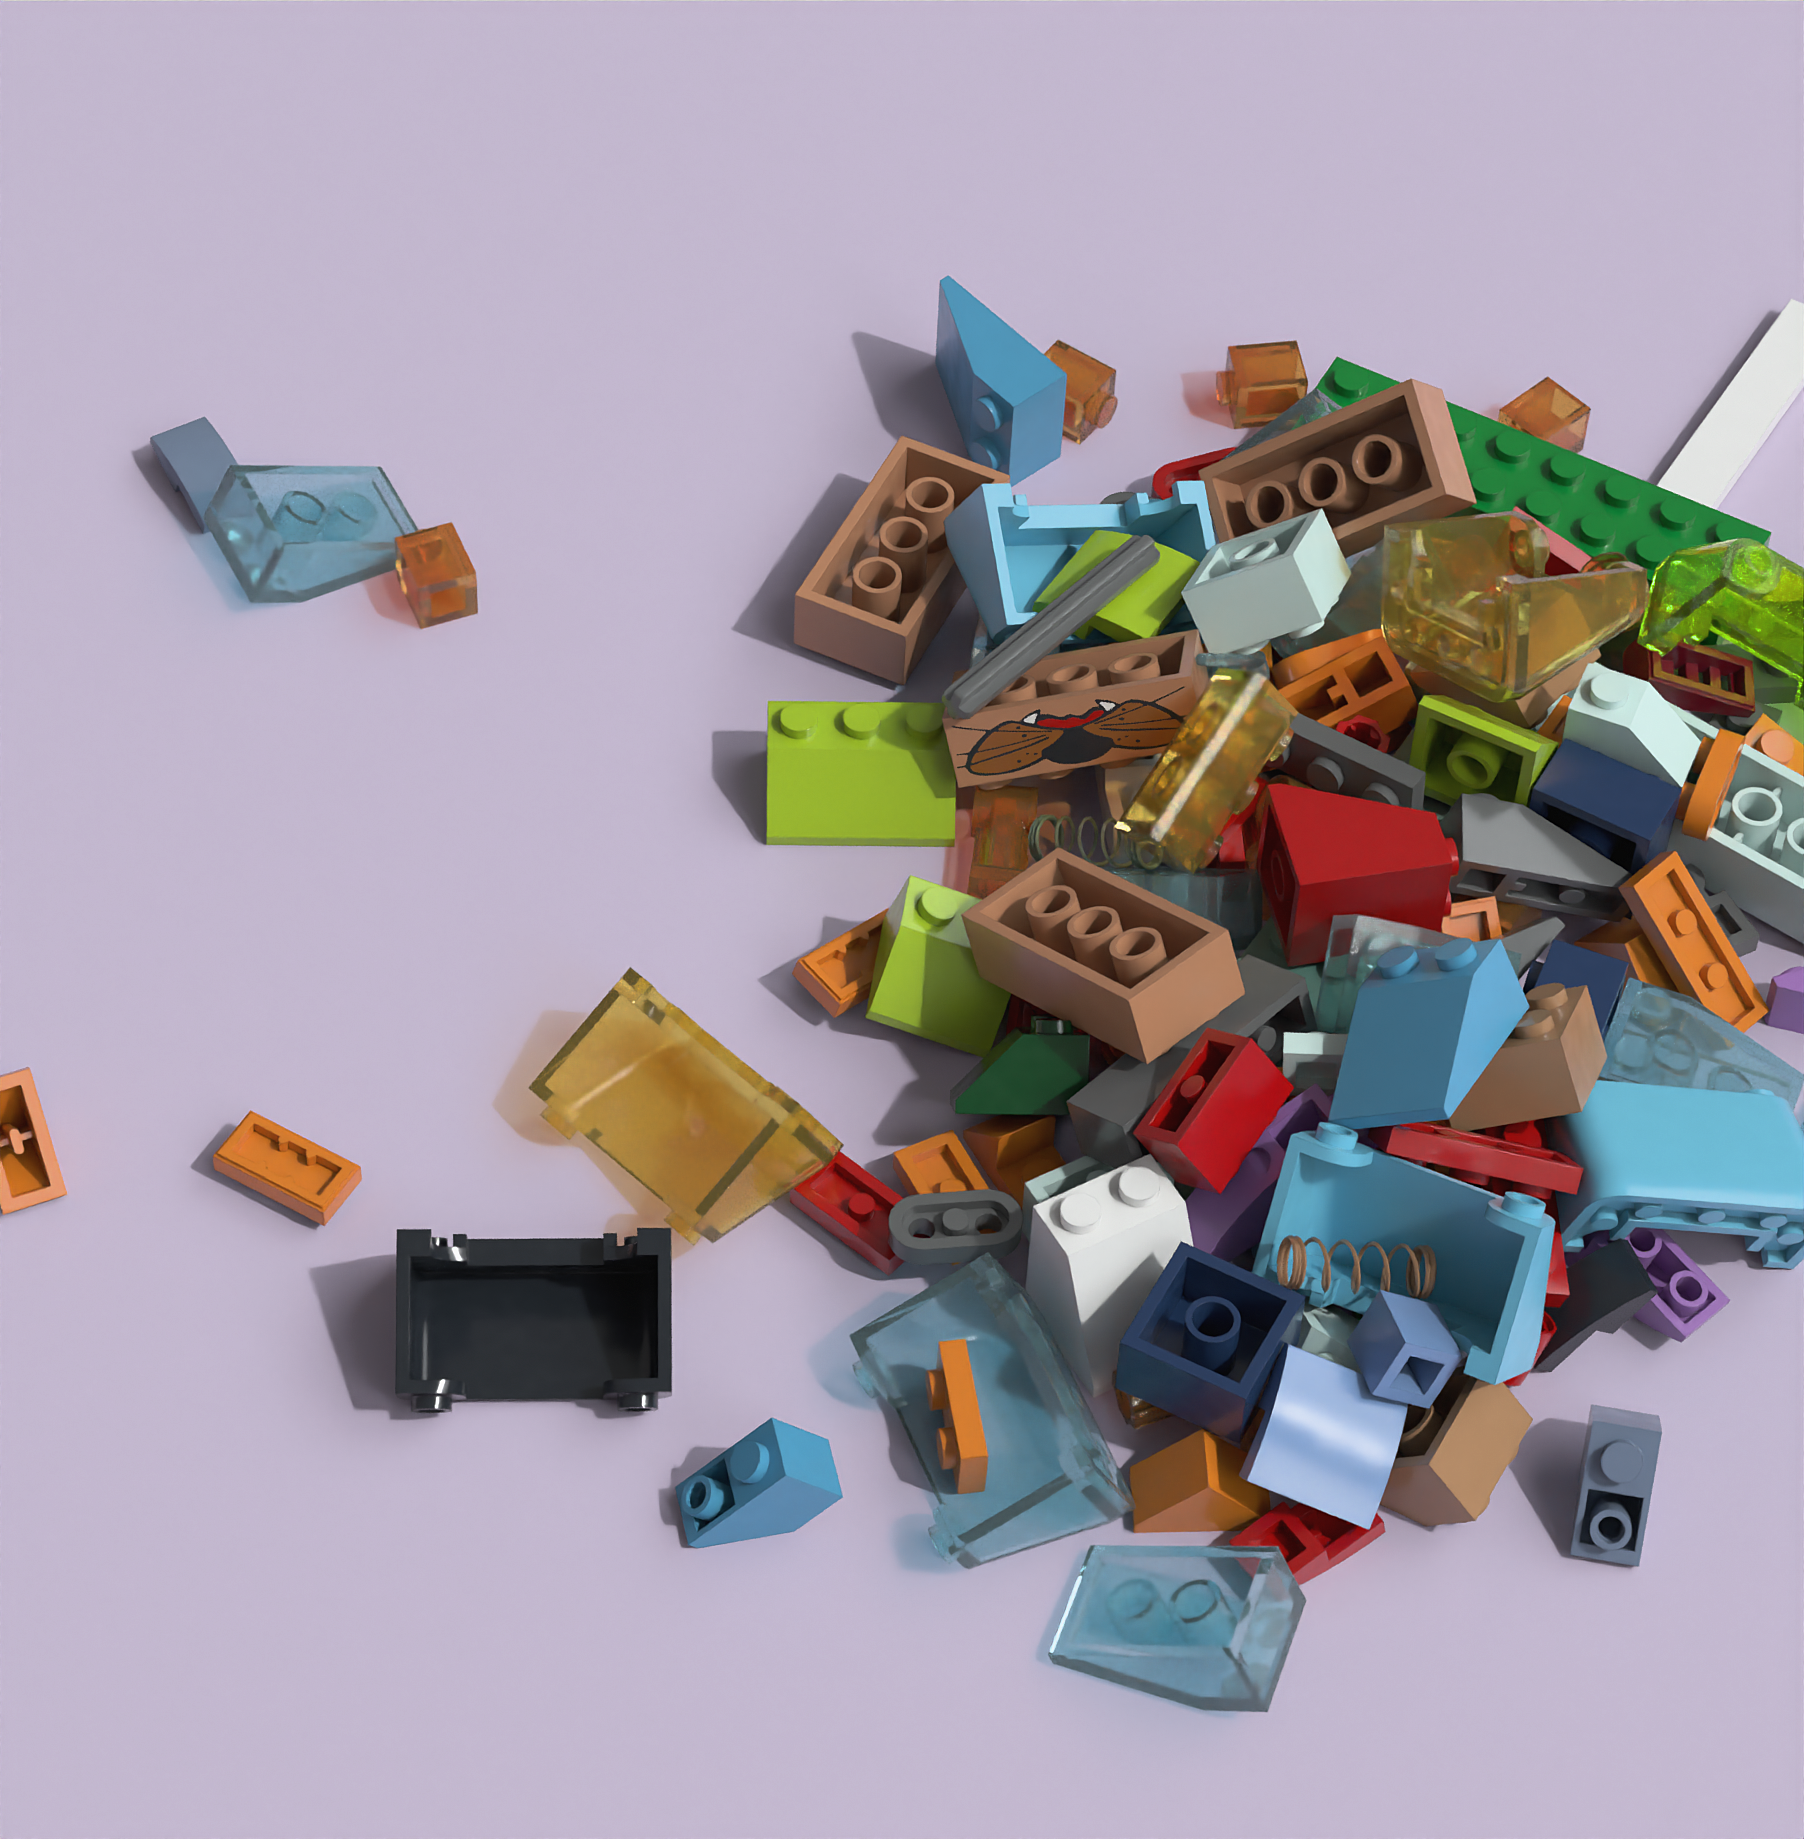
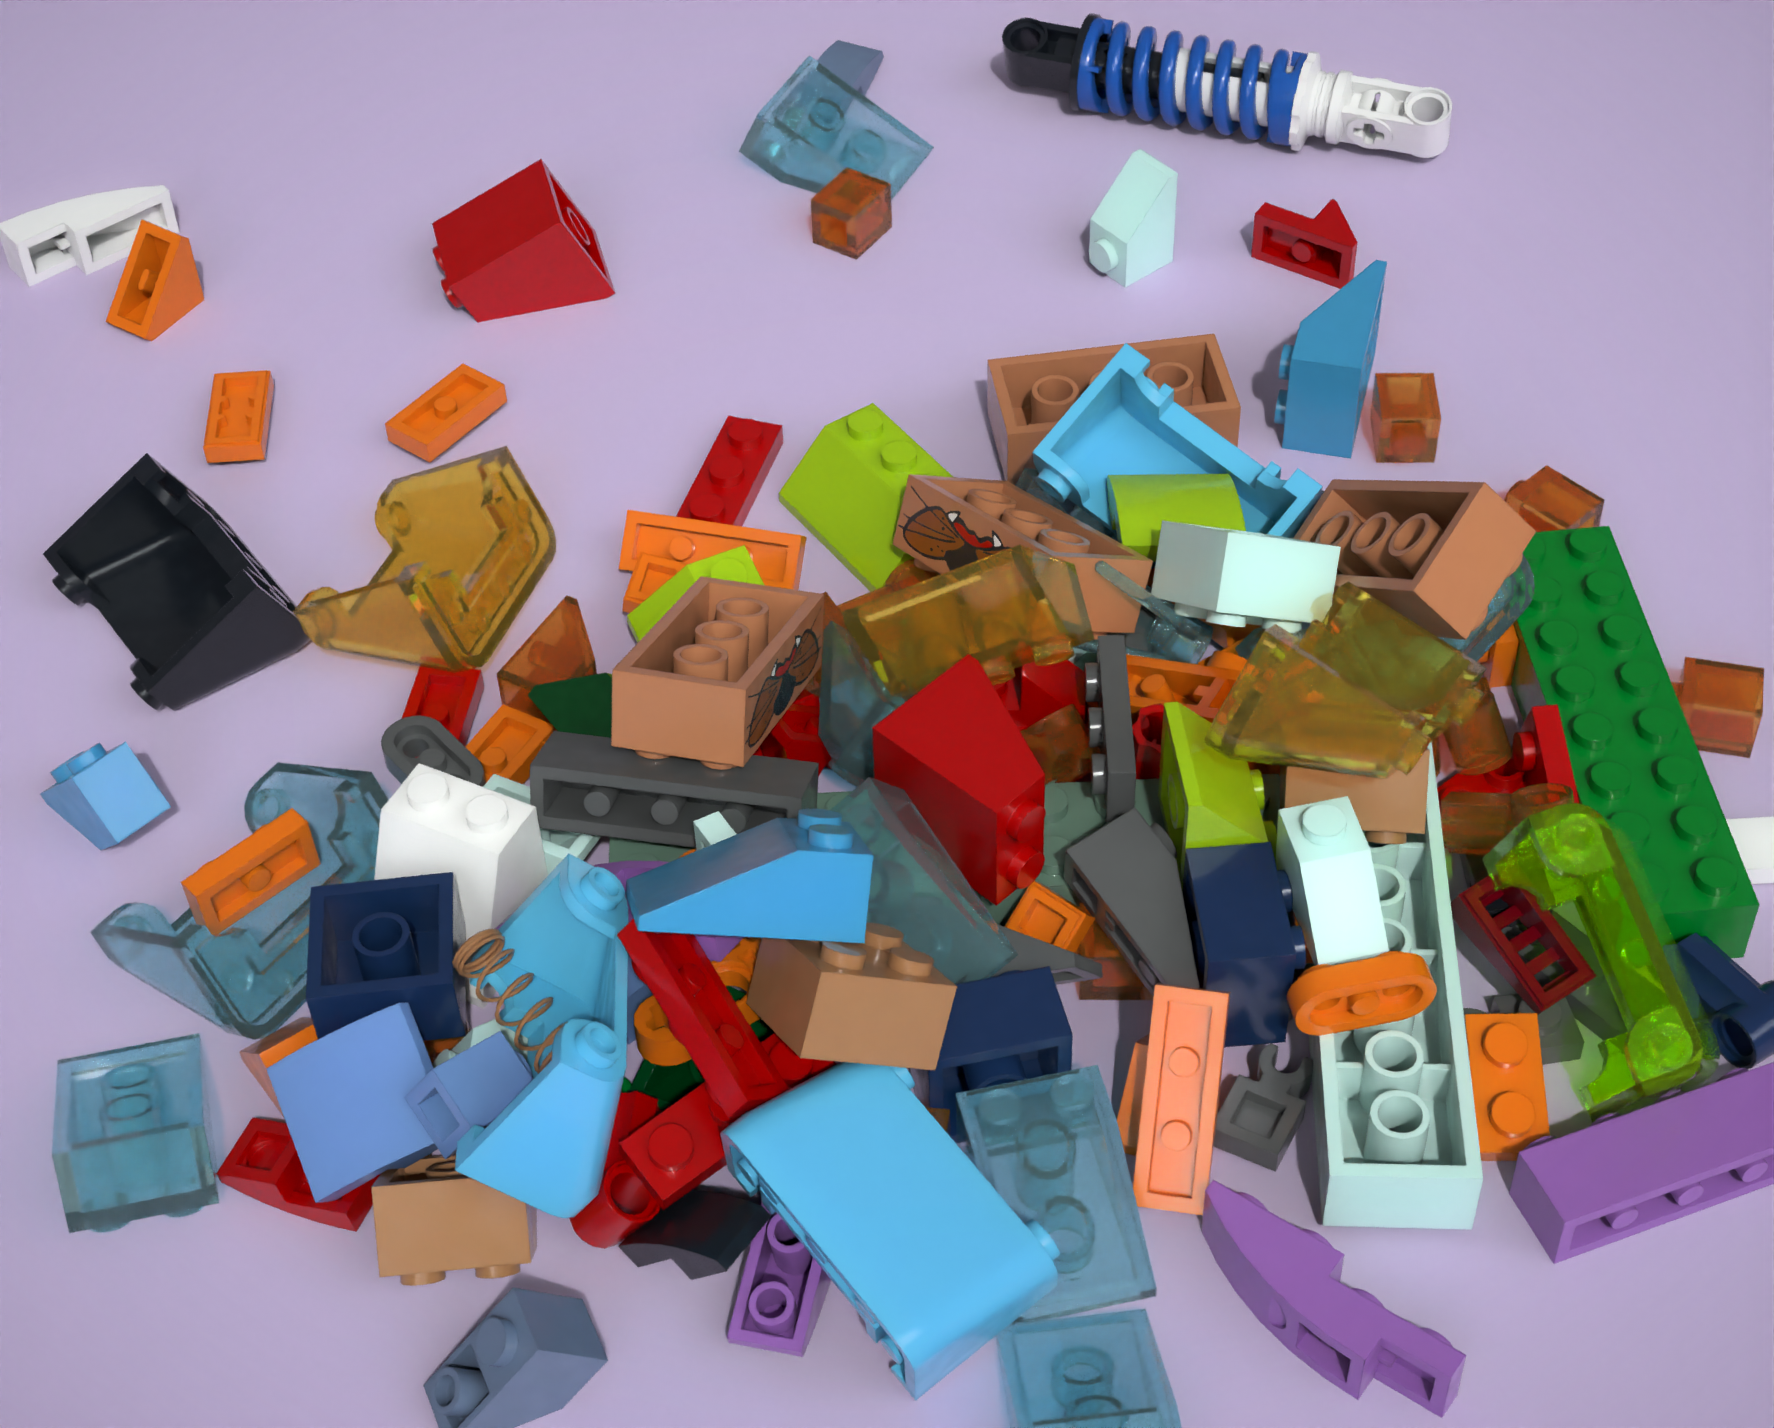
camera: 60 degrees right, 5 degrees down
(256, 835) = (520, 249): none -> red slope
(437, 1010) = (446, 412): none -> orange plate
(529, 228) = (1223, 89): none -> piece
(671, 394) = (1135, 221): none -> light aqua slope
(722, 865) = (733, 472): none -> red plate
(798, 308) = (1307, 246): none -> red slope
(817, 915) = (686, 540): none -> orange plate
(881, 1095) = (551, 654): none -> clear orange slope
(1050, 627) = (1062, 478): dark grey axle -> none
(1213, 1110) = (594, 811): red brick -> none

